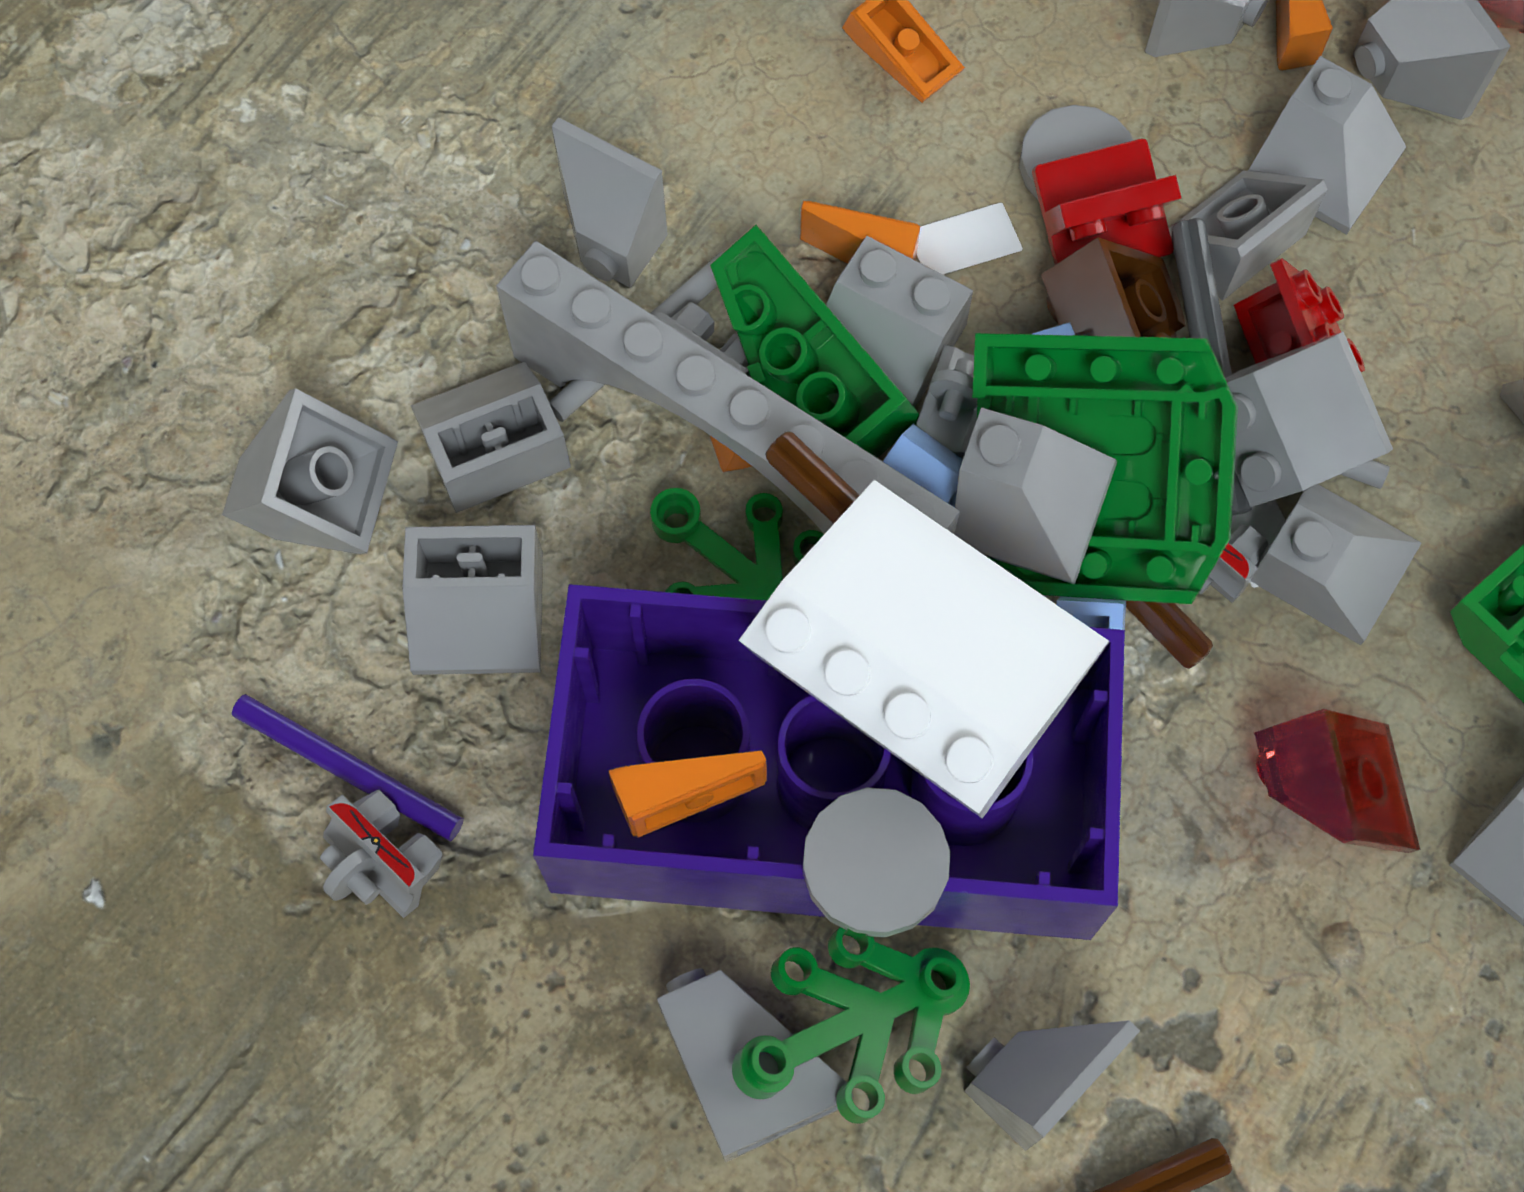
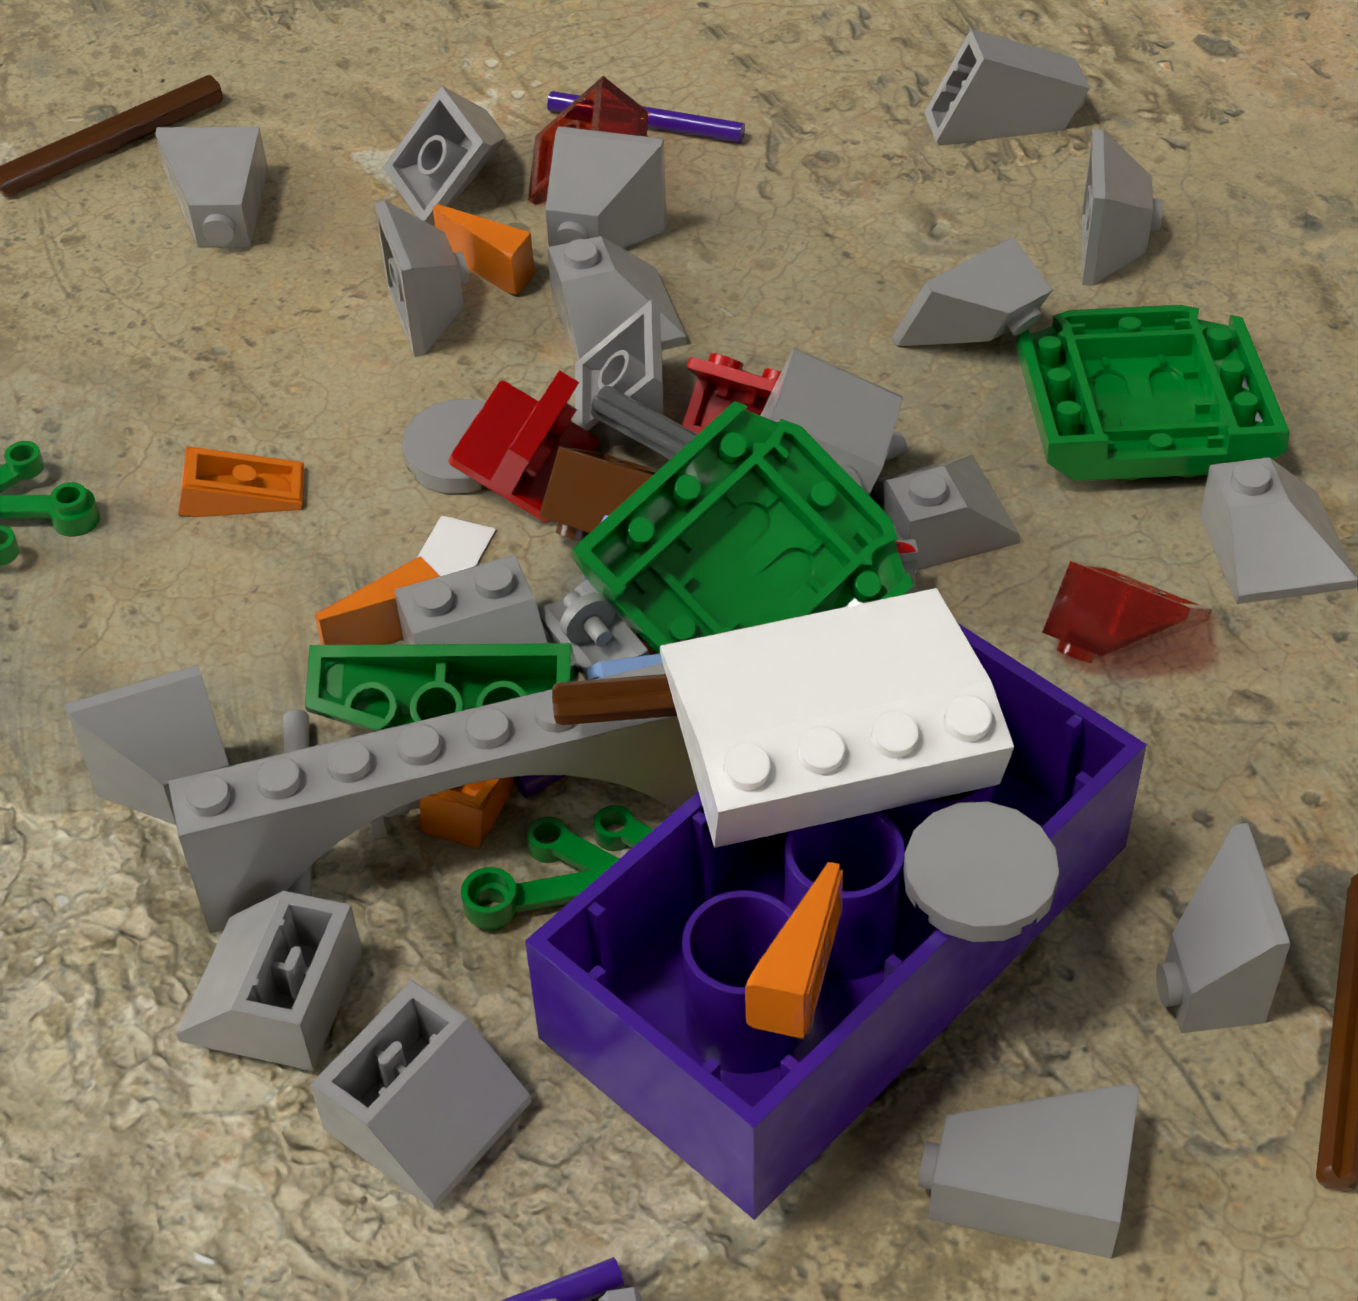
camera: 50 degrees left, 20 degrees down
(312, 477) = (161, 1162): light grey slope -> none
(864, 1015) = (1076, 987): green plant -> none
(1030, 495) = (719, 592): light grey slope -> none

